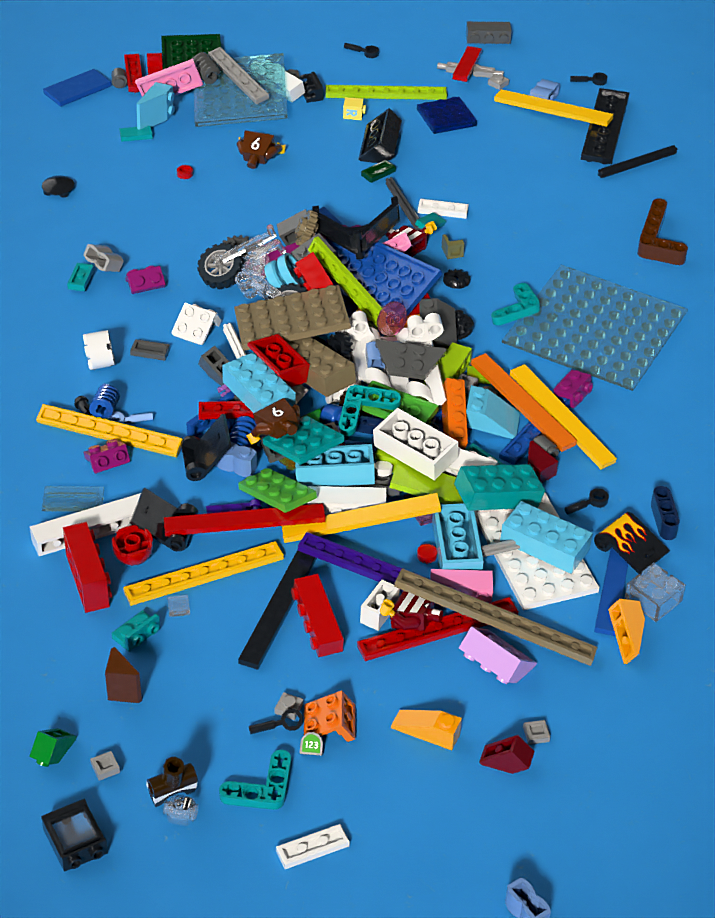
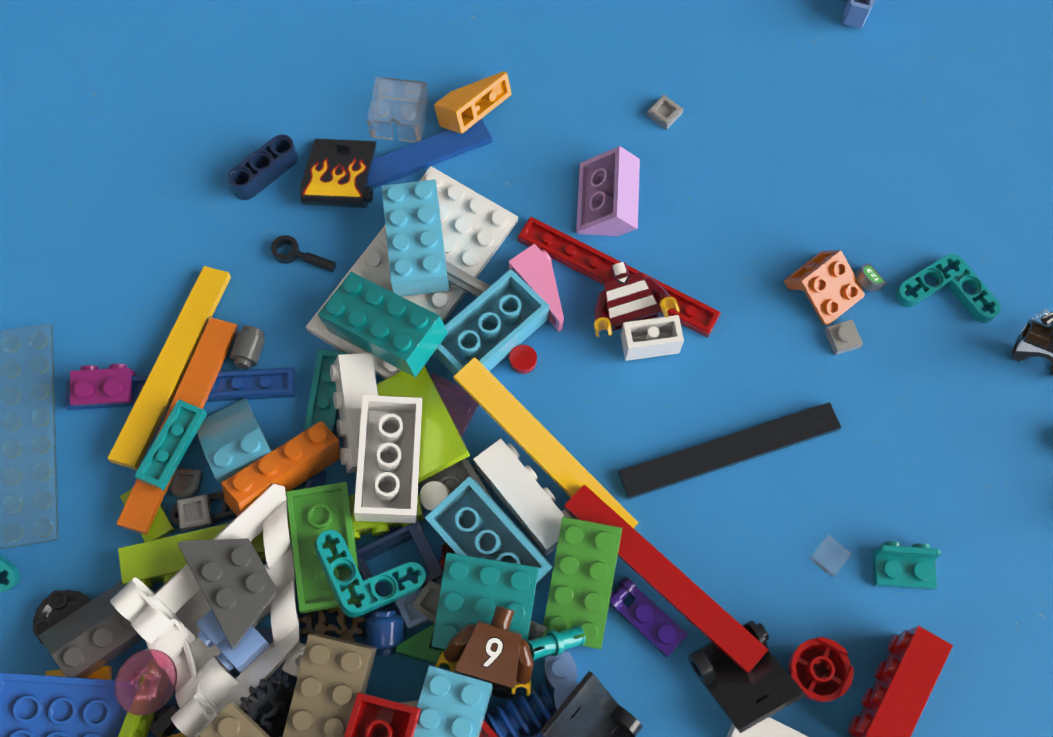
camera: 130 degrees left, 25 degrees up
(122, 679) = (992, 503): reddish brown slope -> none
(203, 573) = (764, 571): yellow tile -> none
(258, 453) = (556, 642): none -> teal pin
(273, 724) = (864, 319): black piece -> none
(312, 846) = (962, 201): white tile -> none
(318, 615) = (719, 389): red brick -> none
(349, 559) = (603, 389): dark purple plate -> none
(429, 725) = (751, 195): light orange slope -> none
(496, 617) = (578, 219): dark tan plate -> none
(508, 384) = (170, 445): none -> teal plate
(508, 755) = (722, 111): dark red slope -> none
(541, 462) = (281, 337): dark red slope -> none

